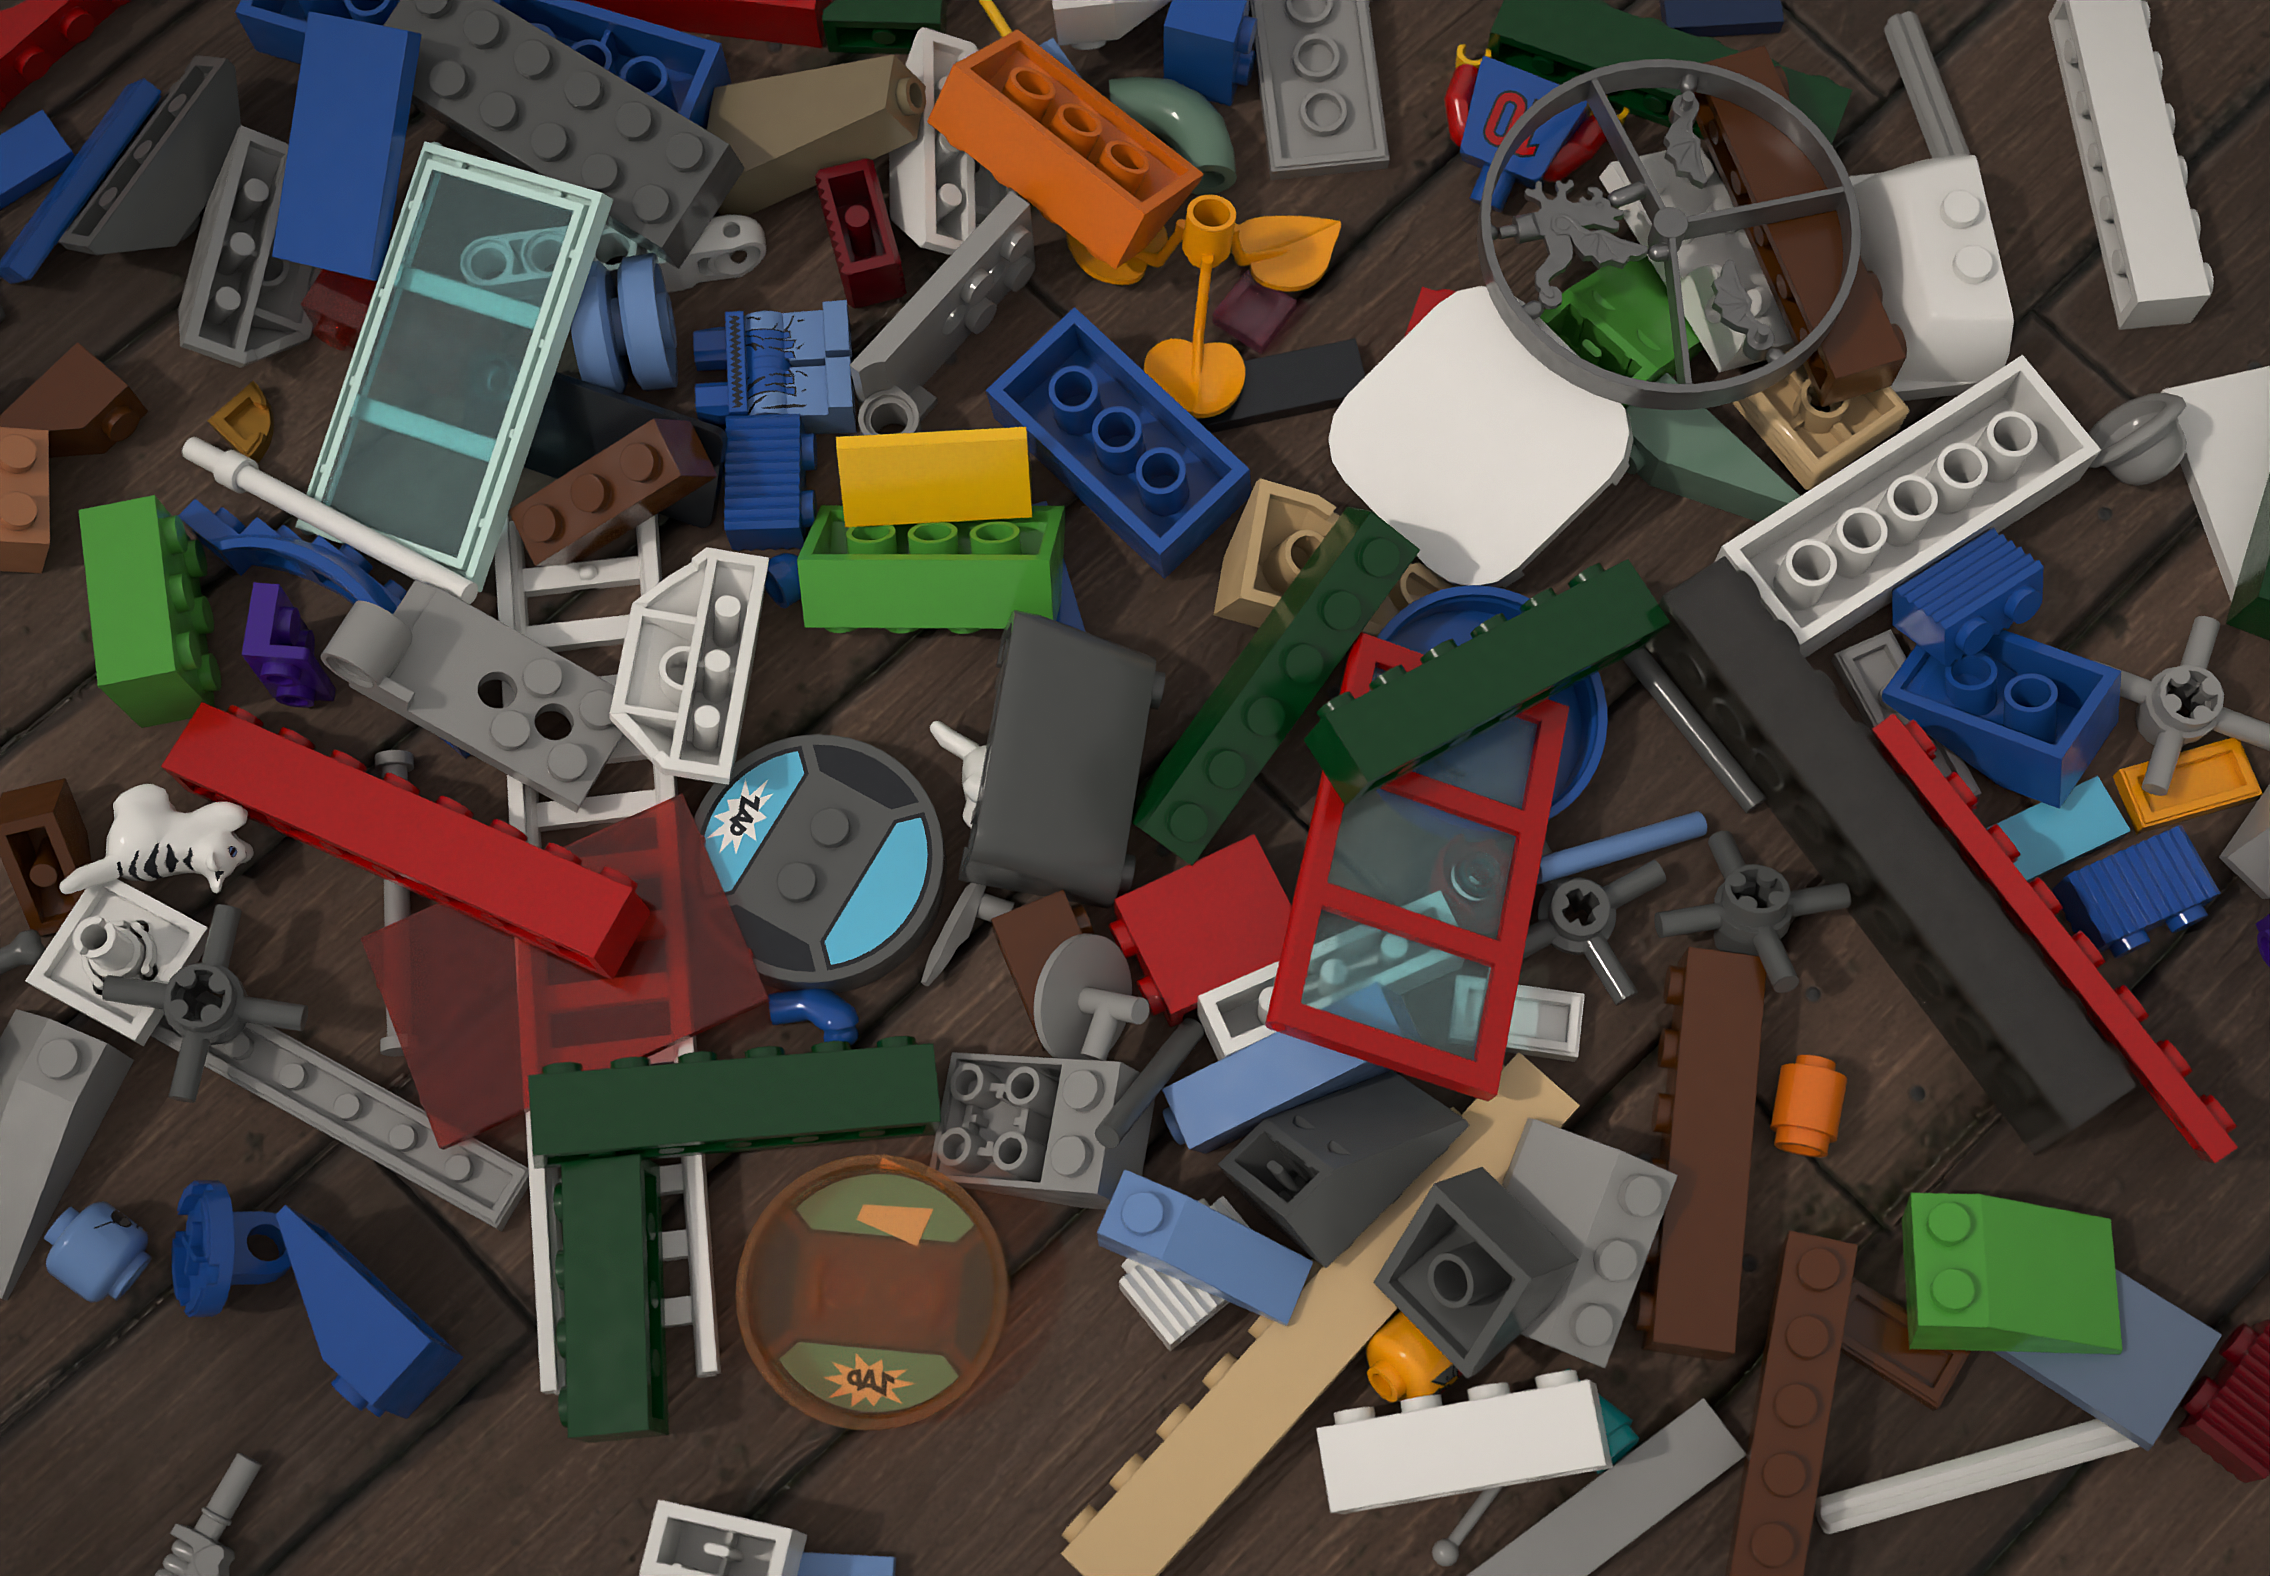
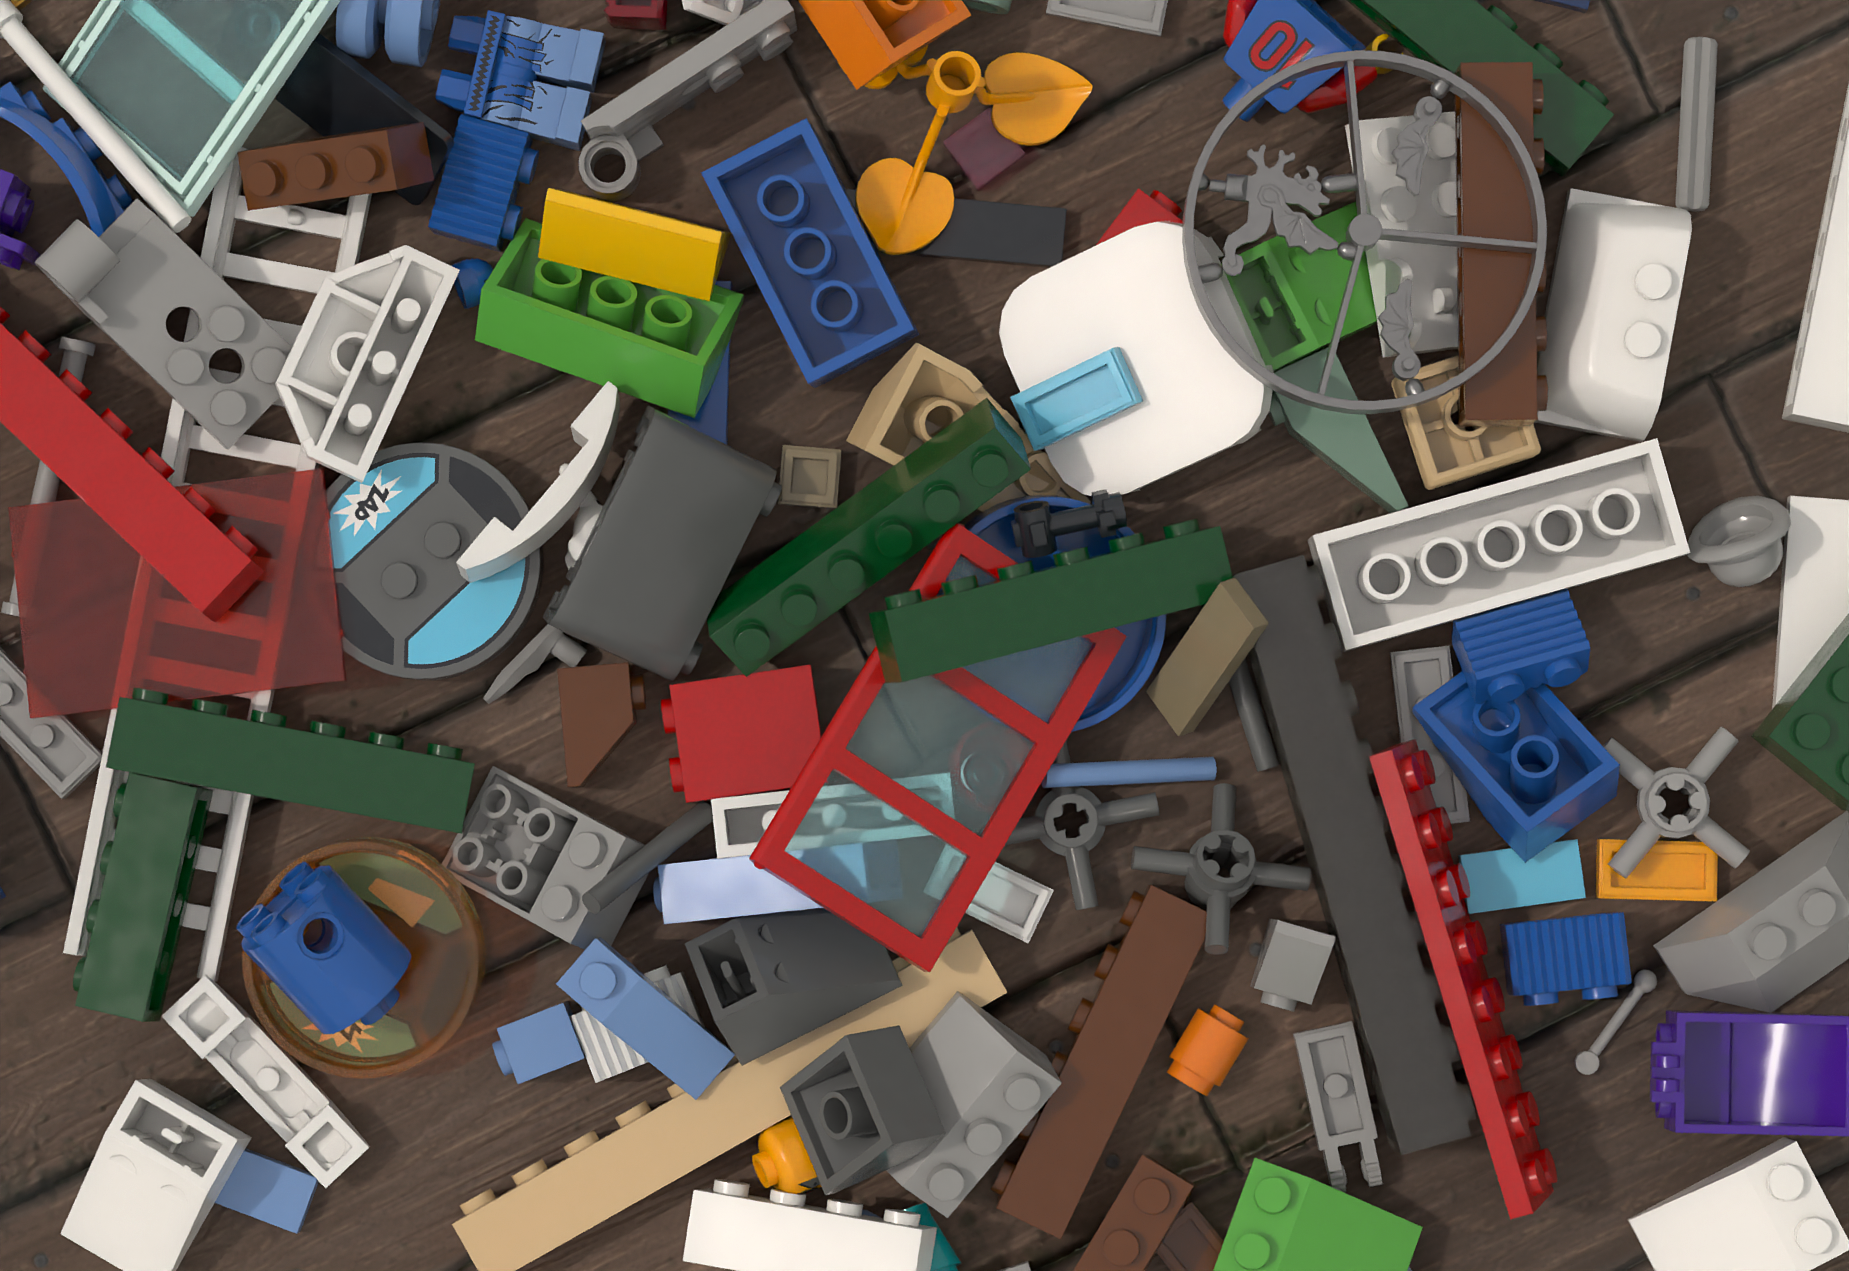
camera: 20 degrees right, 15 degrees up
(805, 1462) = (267, 1079): none -> white slope
(818, 1006) = (391, 694): blue arm -> none
(850, 1295) = (342, 963): none -> blue cylinder
(897, 804) = (501, 547): none -> white slope
(1085, 999) = (617, 766): light grey shield -> none
(1094, 1325) = (538, 1043): none -> medium blue brick
(1189, 664) = (810, 477): none -> dark tan tile
(1437, 488) = (1076, 398): none -> medium azure tile
(1444, 617) = (1037, 527): none -> black bar
(1661, 695) = (1207, 656): none -> dark tan tile
(1863, 980) = (1290, 964): none -> light grey slope
(1964, 1116) = (1338, 1099): none -> light grey hinge
(2201, 998) = (1587, 1061): none -> light grey hinge

